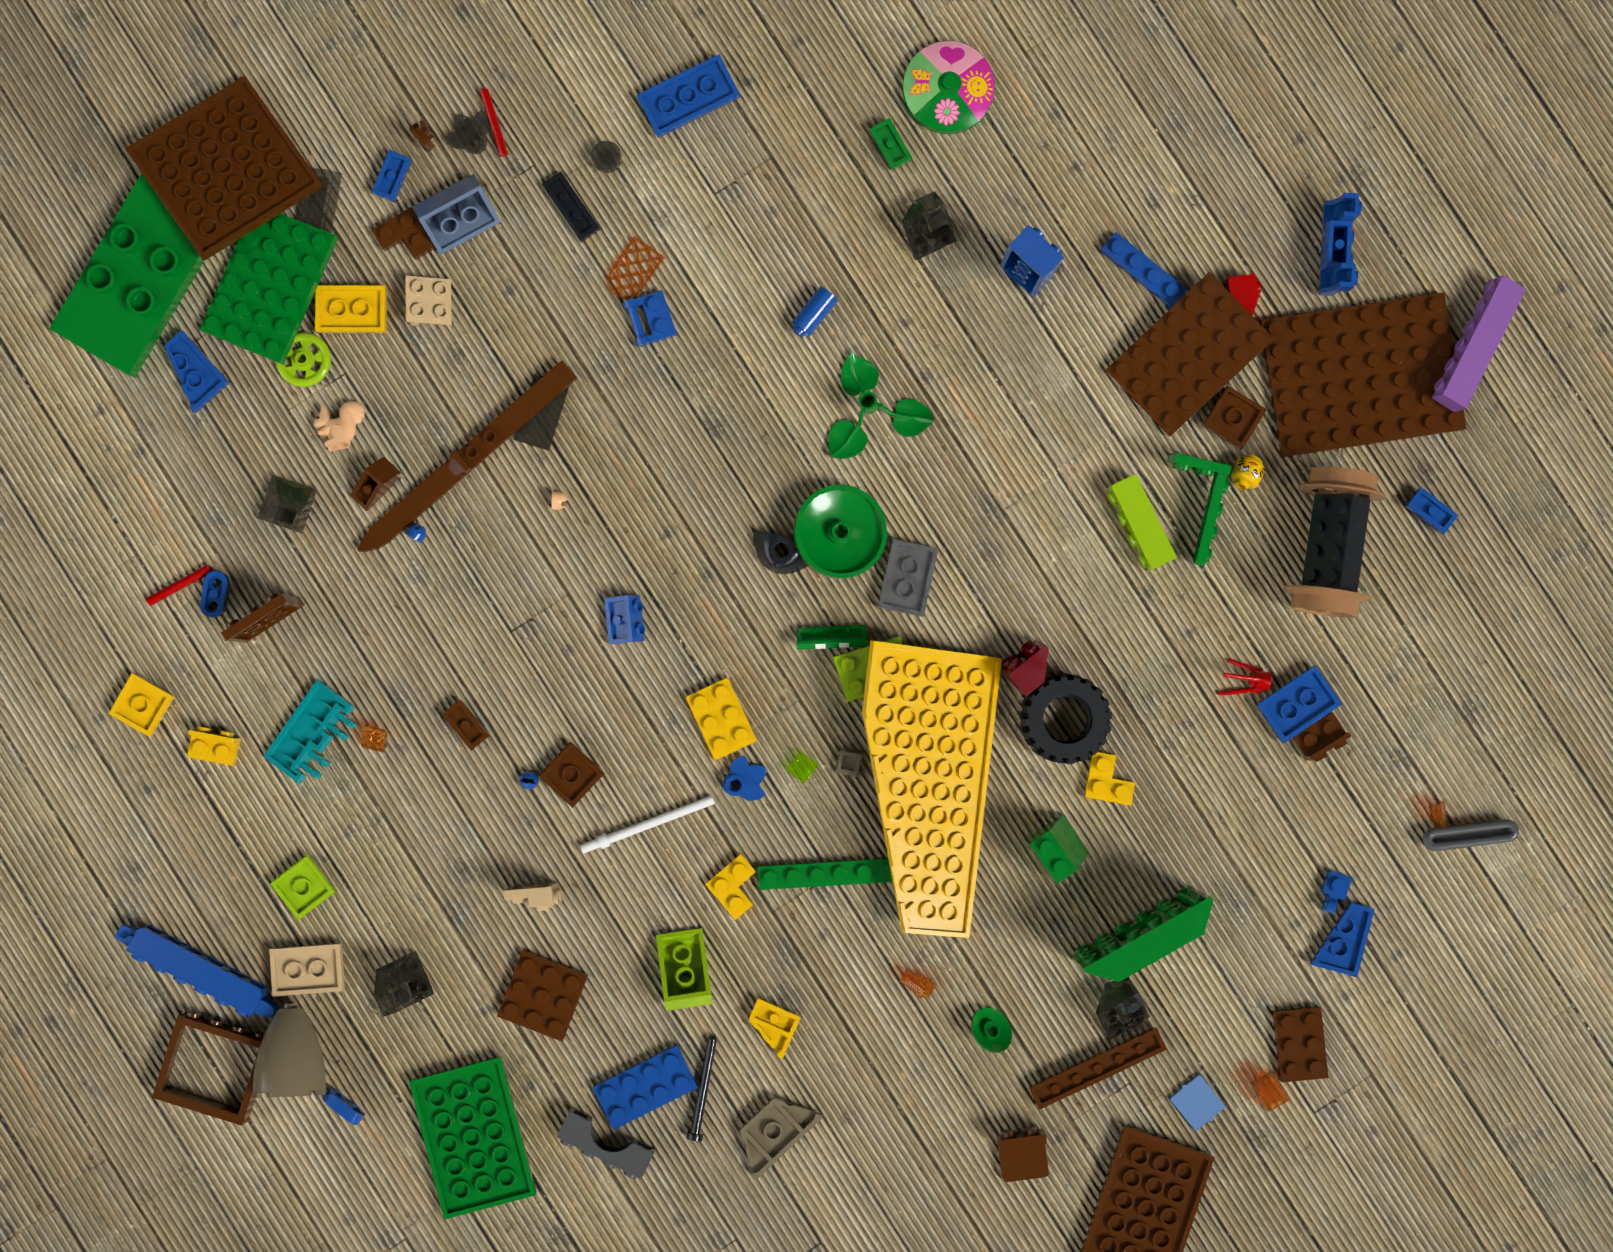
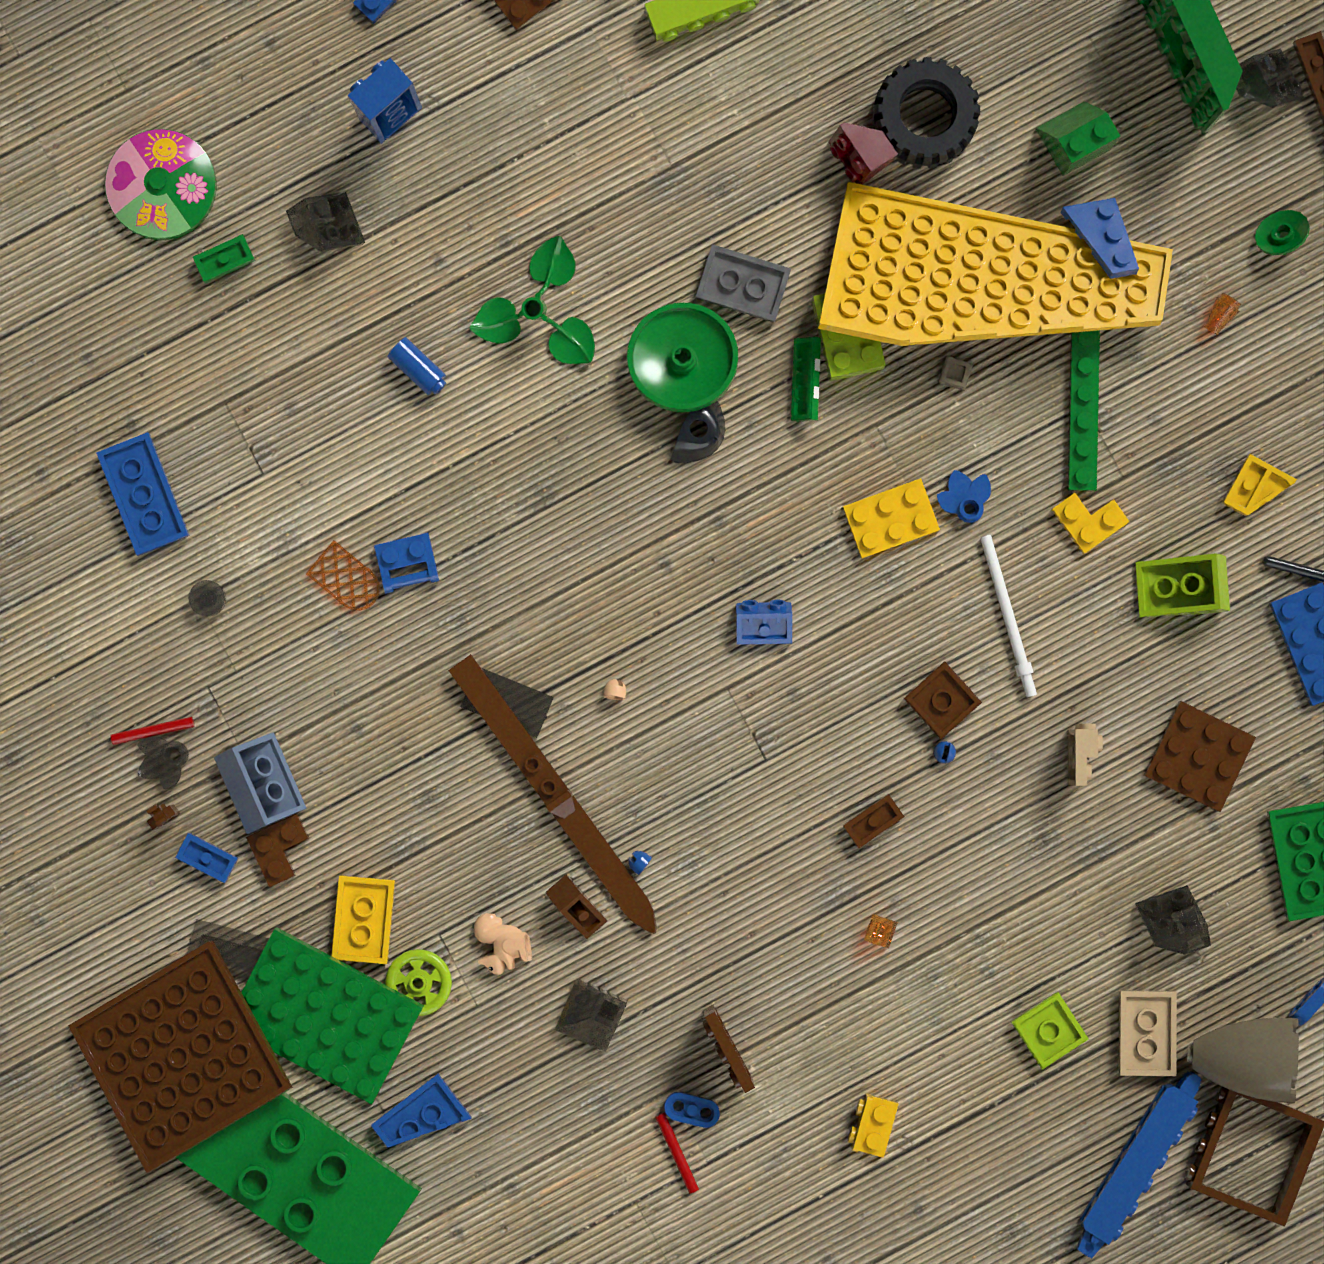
camera: 85 degrees left, 0 degrees up
(141, 704) = (816, 1207): yellow plate -> none
(308, 731) = (864, 1009): teal hinge -> none
(428, 300) = (361, 825): tan hinge -> none
(571, 207) = (263, 646): black tile -> none
(802, 767) = (955, 428): clear neon green tile -> none
(977, 878) = (1105, 234): none -> blue wing
(1101, 784) = (1008, 77): yellow plate -> none

